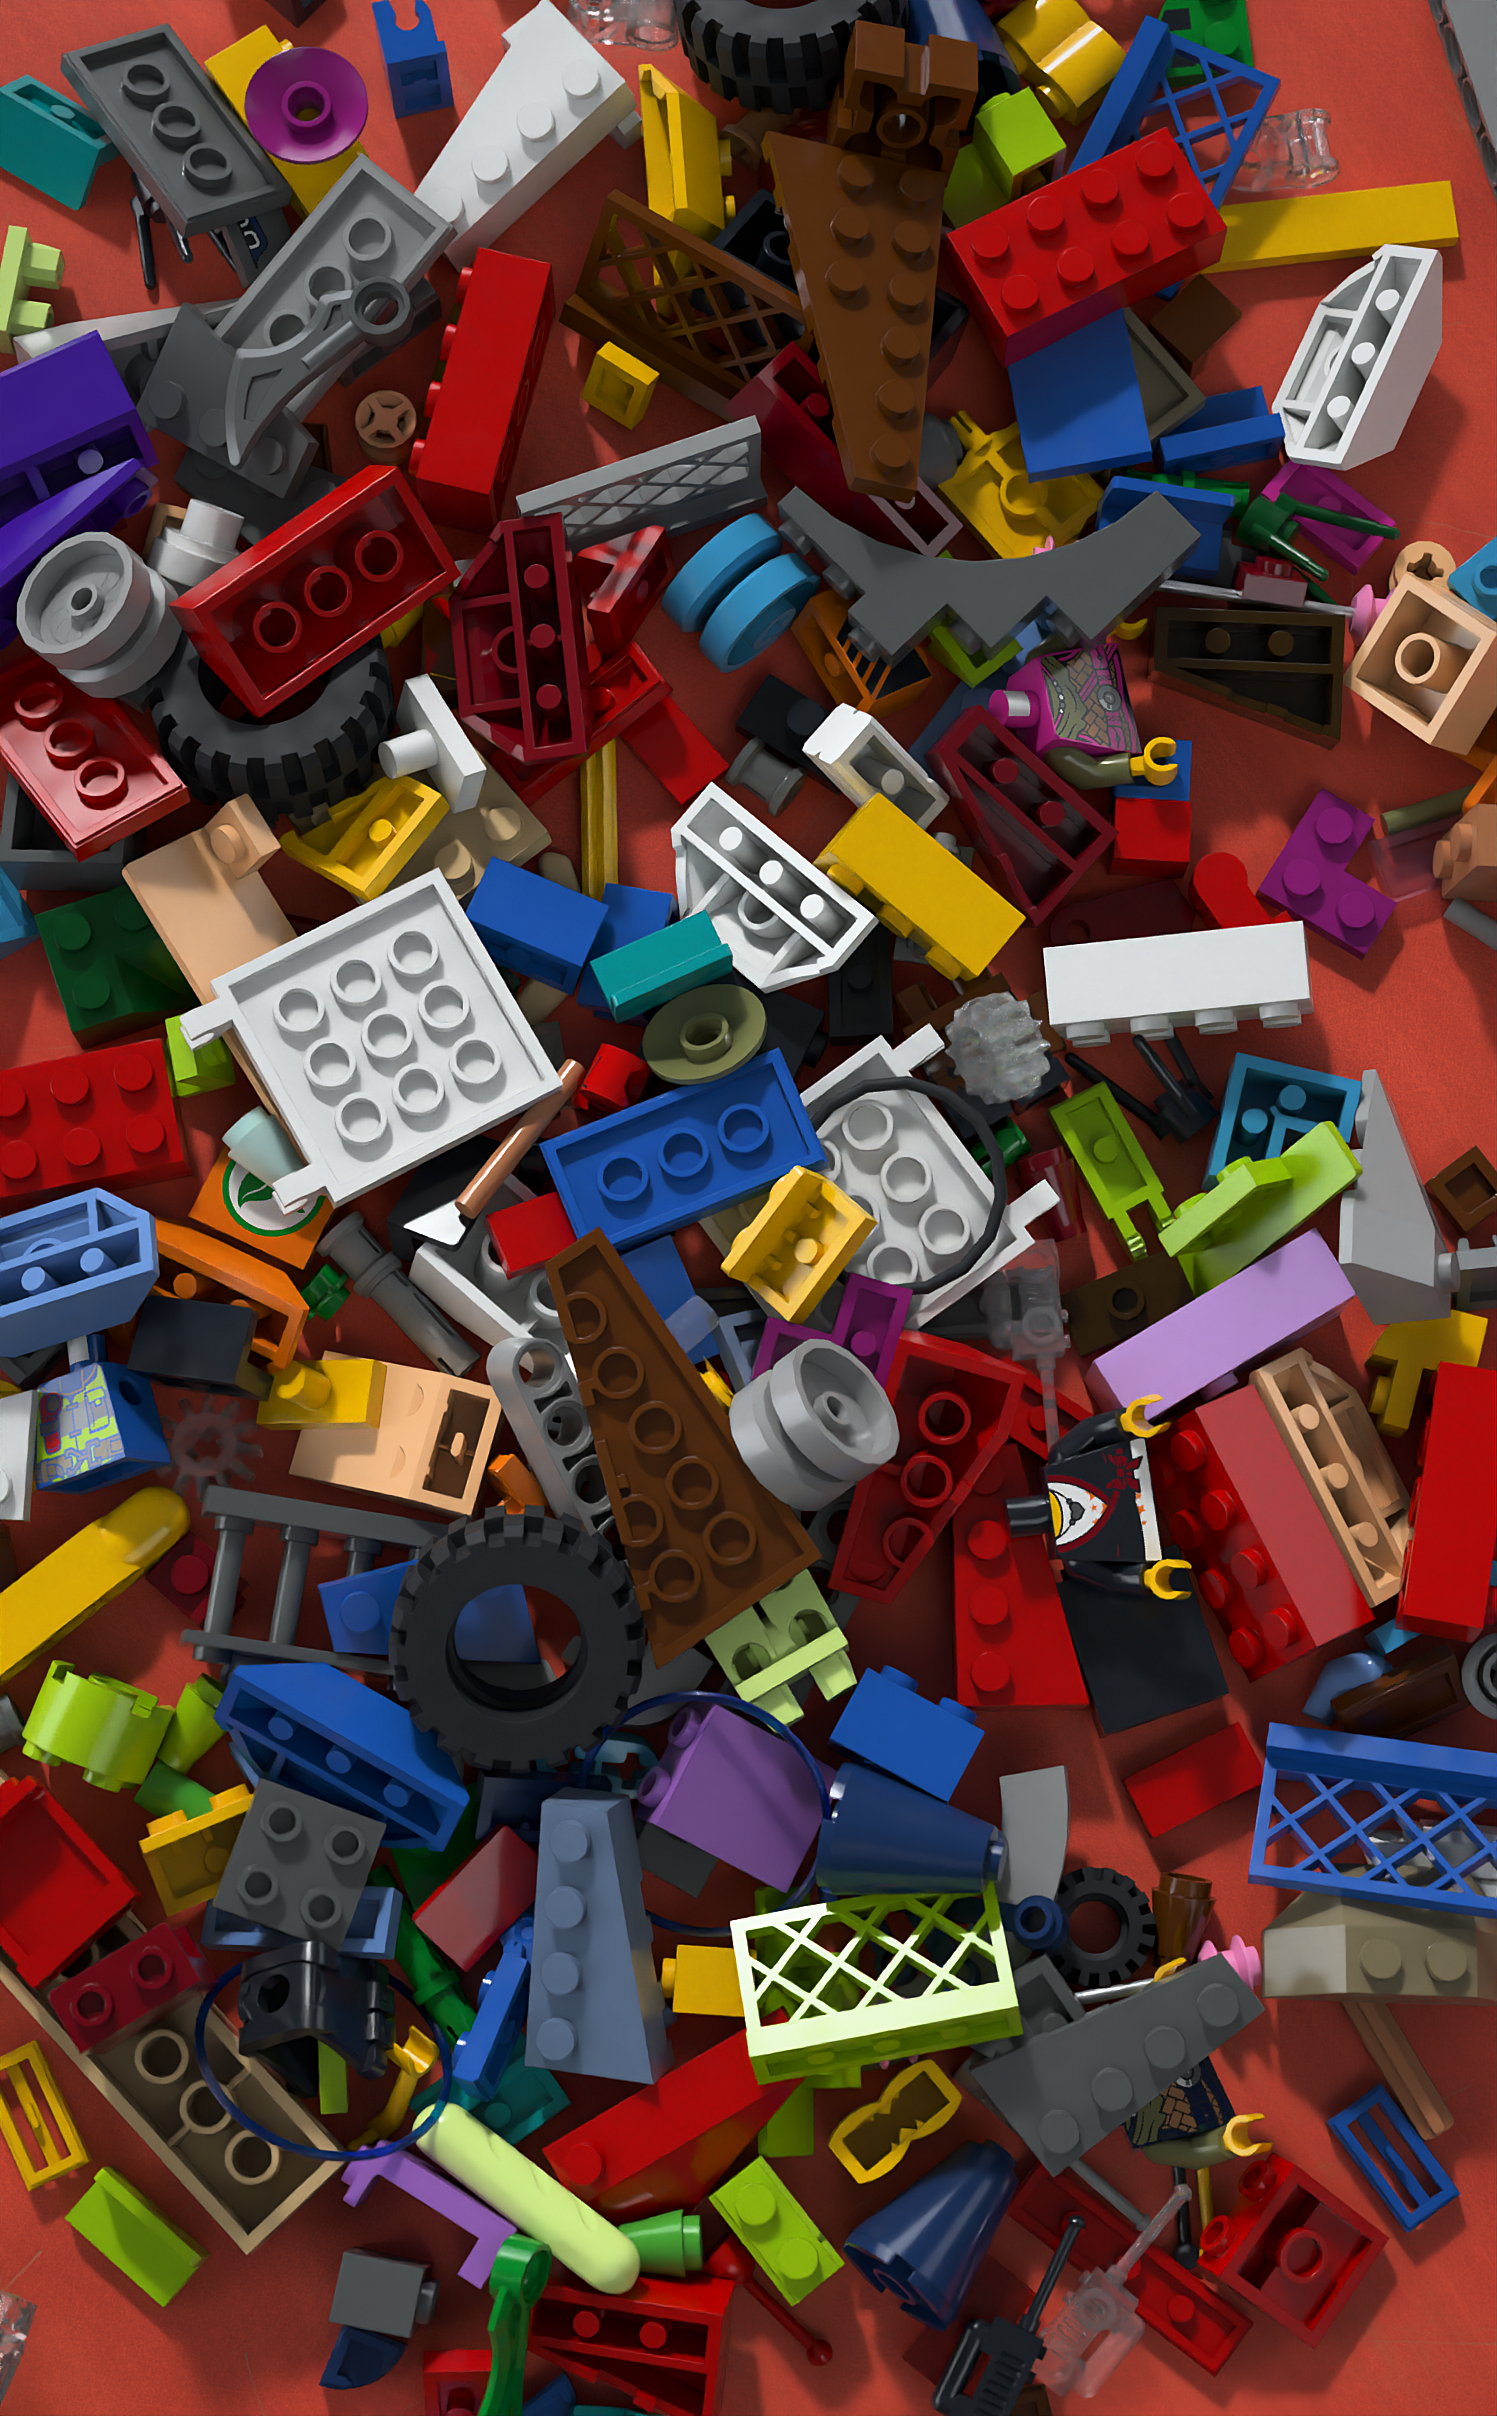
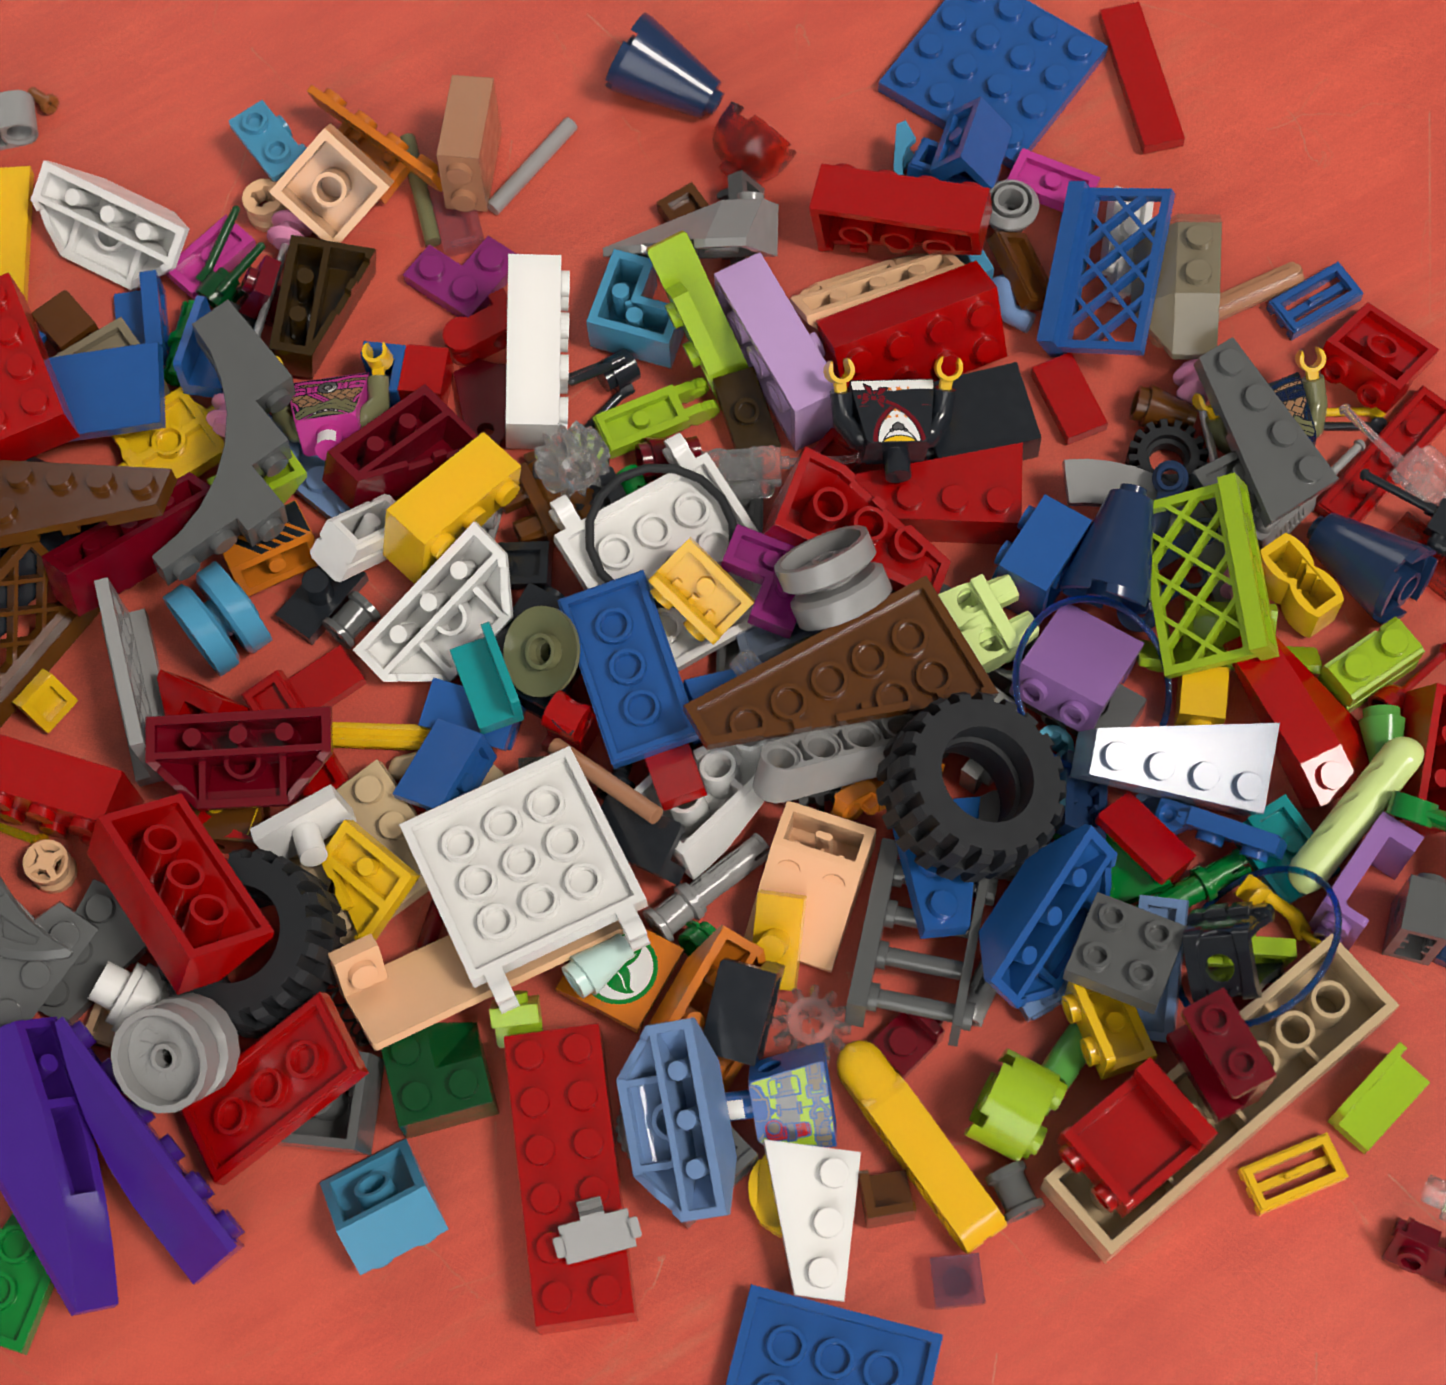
camera: 80 degrees left, 10 degrees down
(192, 1724) = (1007, 1031): lime cone -> none
(1412, 1353) = (800, 248): yellow brick -> none

